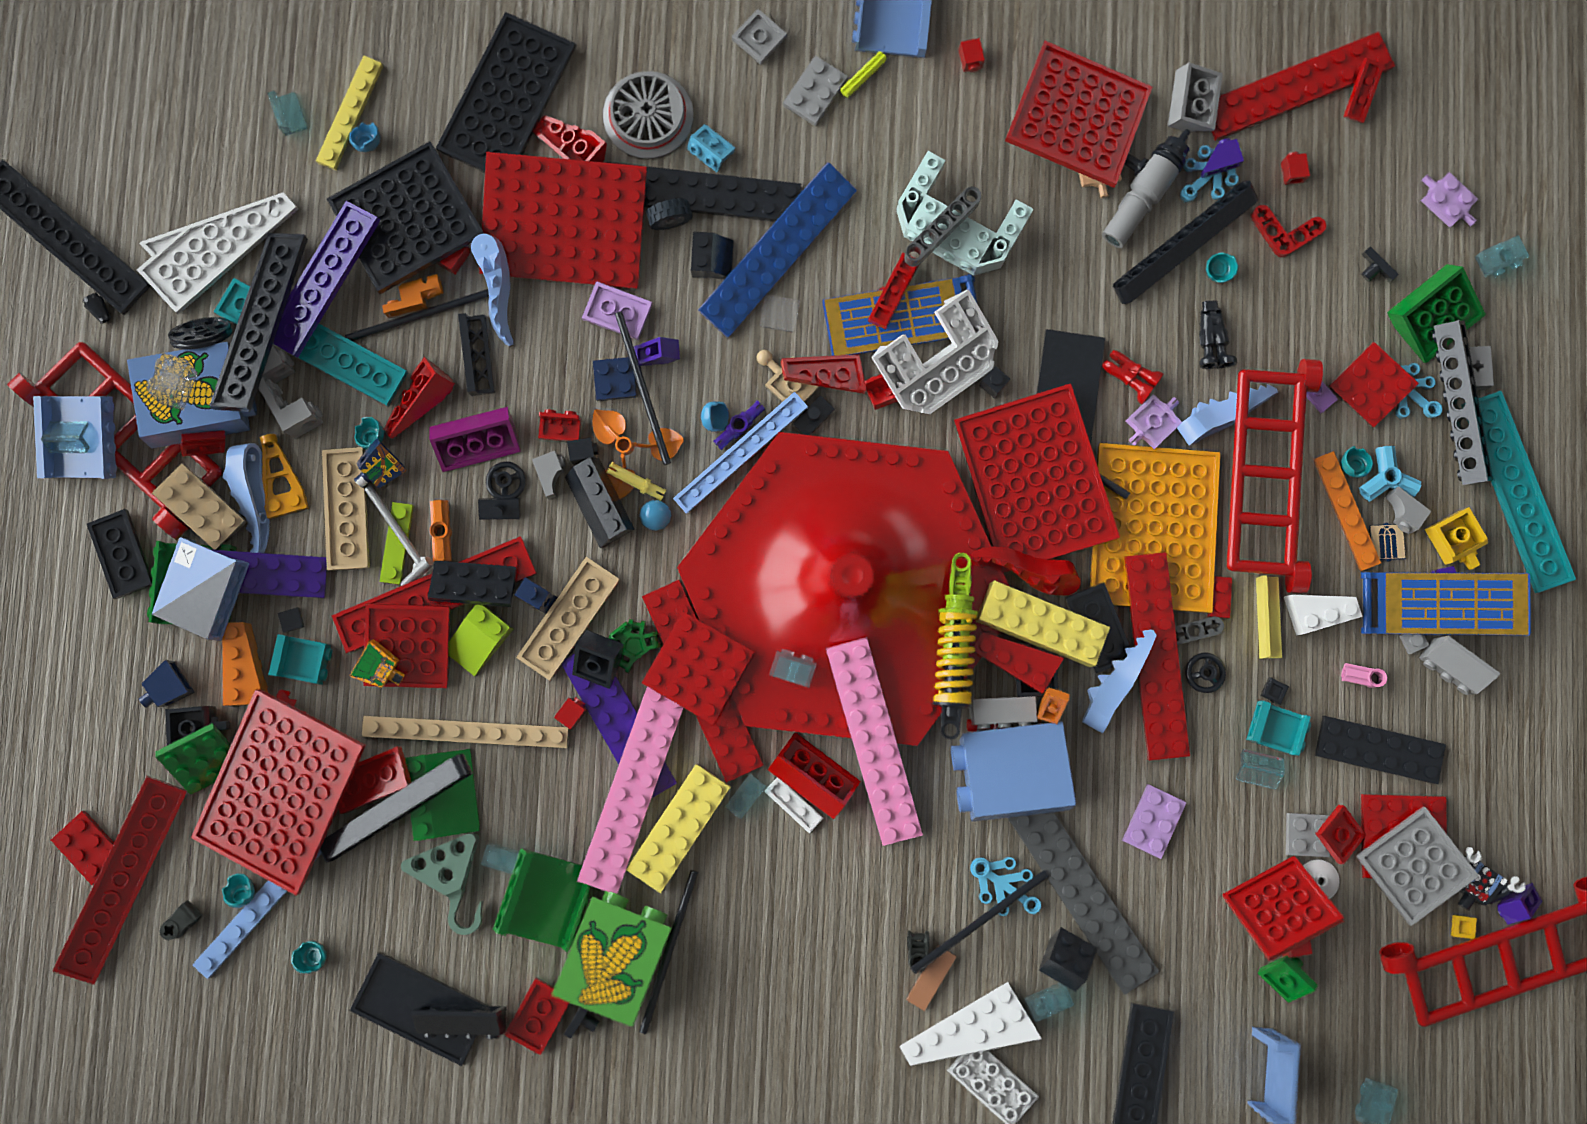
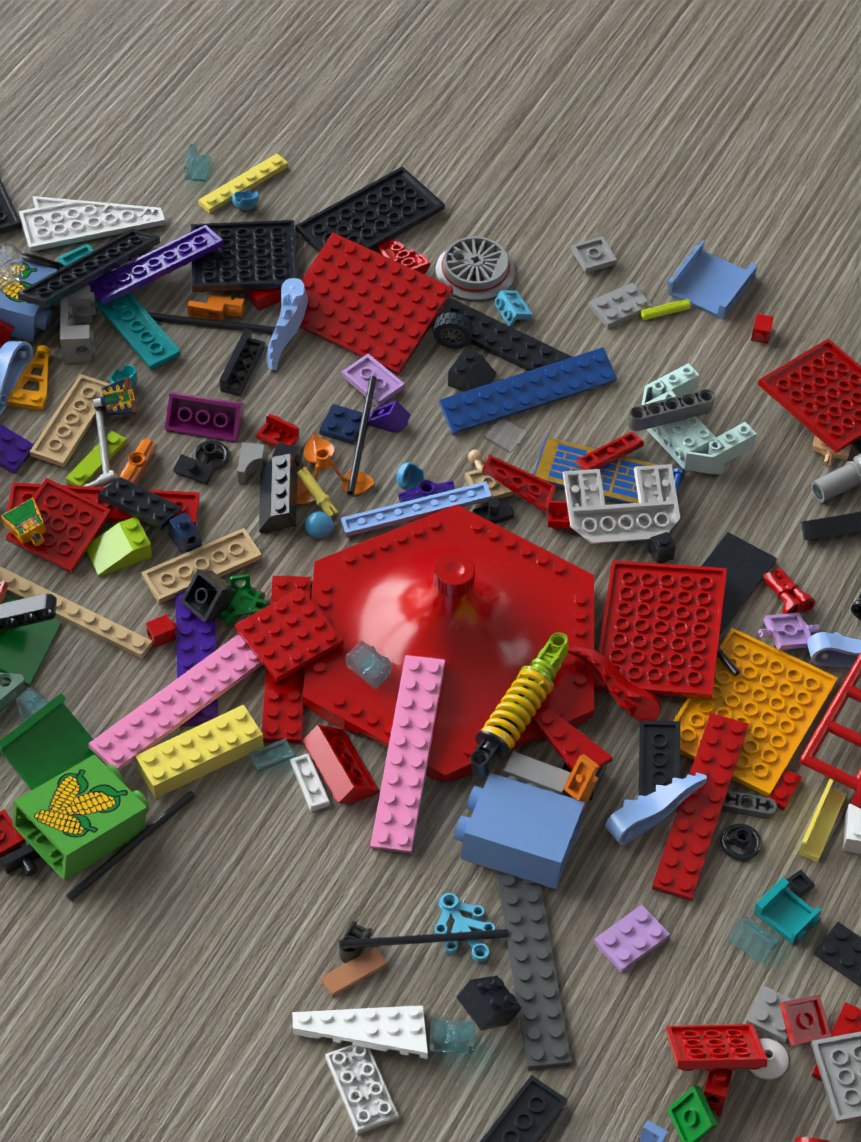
camera: 25 degrees right, 30 degrees down
(426, 391) = (189, 368): red wedge -> none
(1042, 624) = (607, 724): light yellow brick -> none

